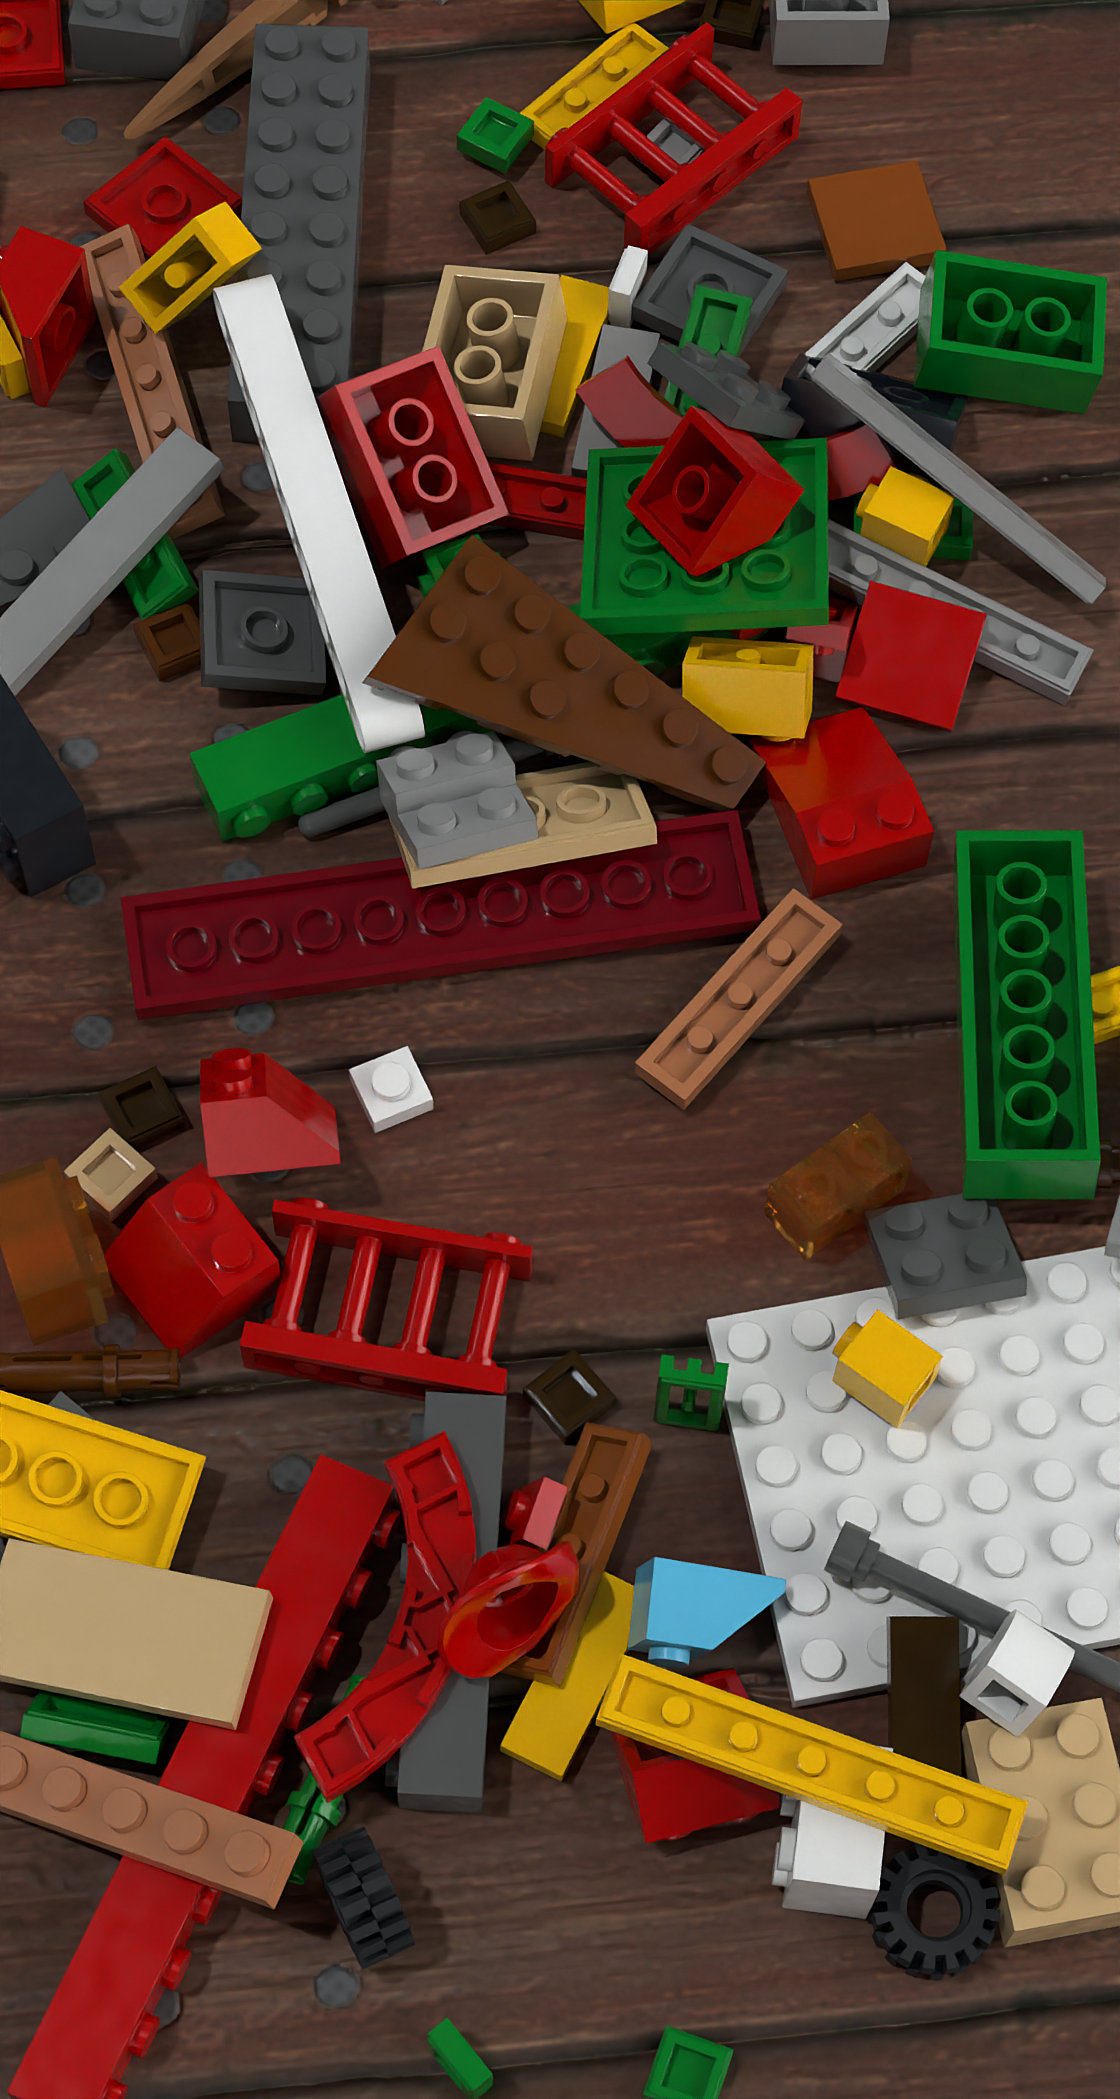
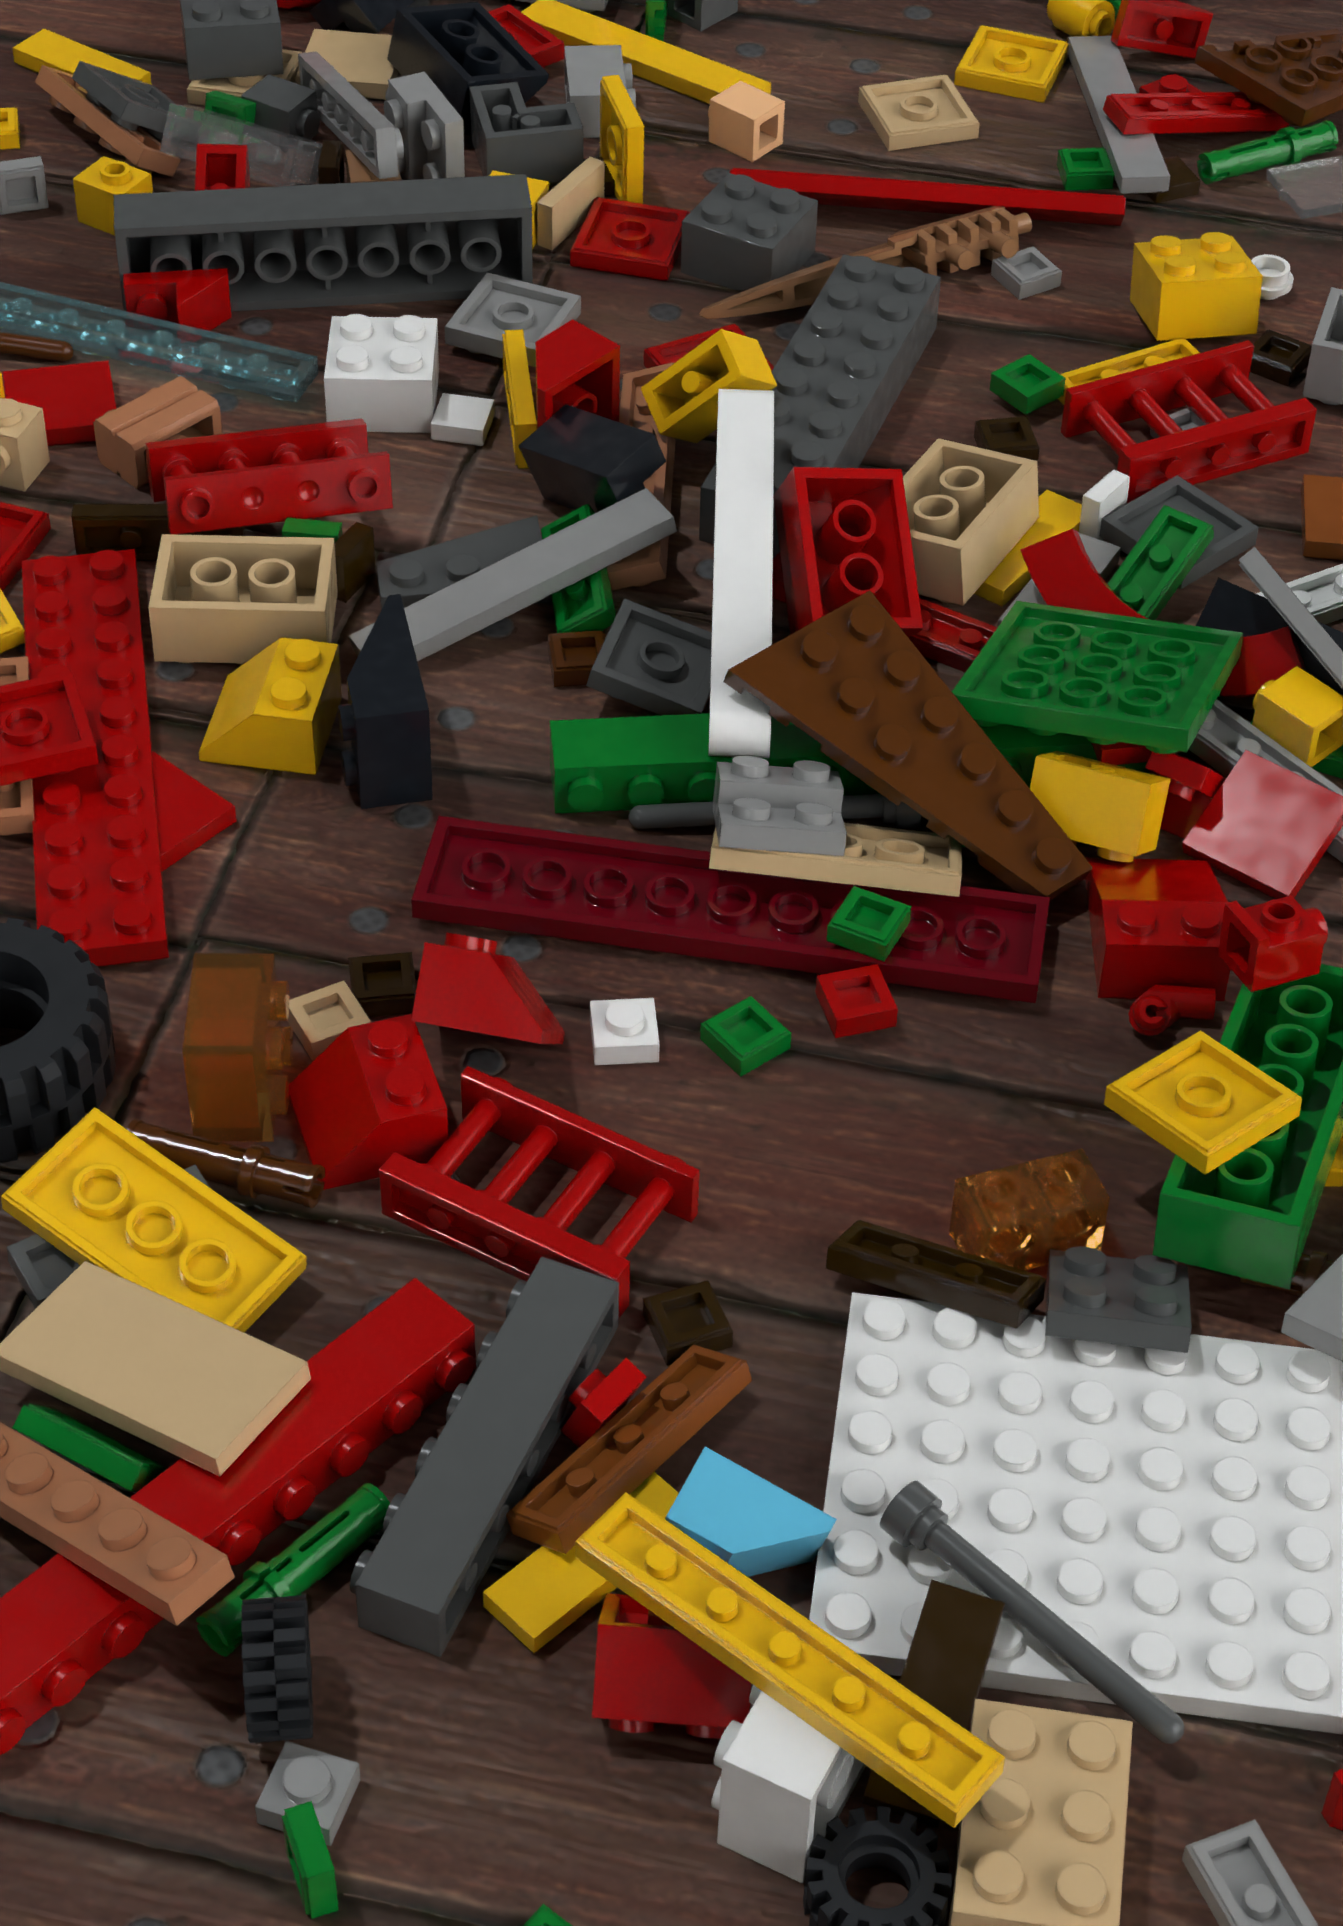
camera: 20 degrees right, 20 degrees down
(102, 397) = (590, 459): none -> black piece
(409, 1672) = (440, 1455): red tile -> none
(425, 1989) = (307, 1776): none -> light grey plate
(505, 1056) = (745, 1036): none -> green tile
(507, 1607) = (533, 1438): red hat -> none
(583, 901) = (868, 923): none -> green tile
(597, 987) = (856, 1001): none -> red plate
(691, 1381) = (811, 1302): green tile -> none
(712, 493) = (1114, 629): red slope -> none
(726, 390) = (1161, 566): dark grey plate -> none
(738, 999) = (990, 1046): nougat plate -> none
(775, 1277) = (936, 1273): none -> dark brown tile
(878, 894) = (1166, 1004): none -> red arm
(885, 1366) = (1015, 1365): yellow brick -> none
(971, 1043) = (1202, 1101): none -> yellow tile
(975, 830) = (1272, 942): none -> red brick
(1016, 1673) = (1044, 1657): white brick -> none

